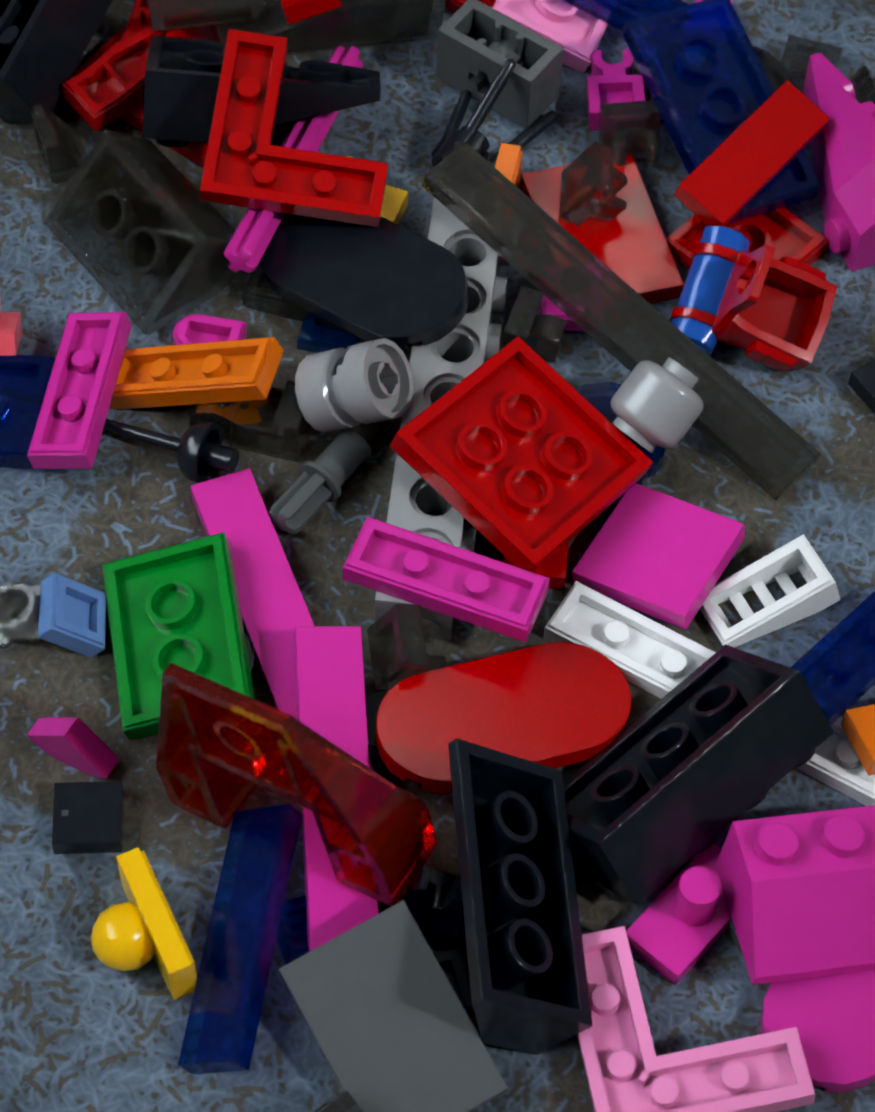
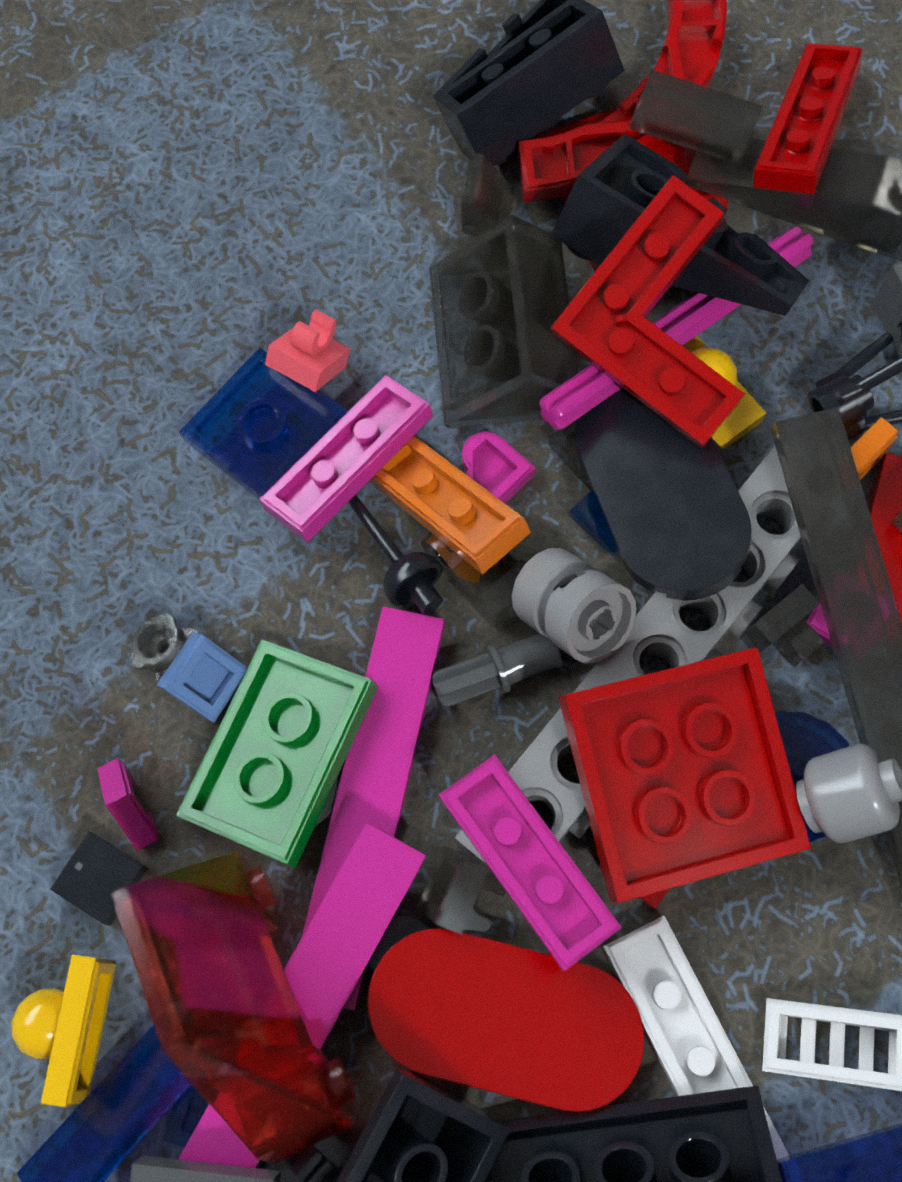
camera: 40 degrees right, 15 degrees up
(659, 555) = (760, 940): dark pink tile -> none

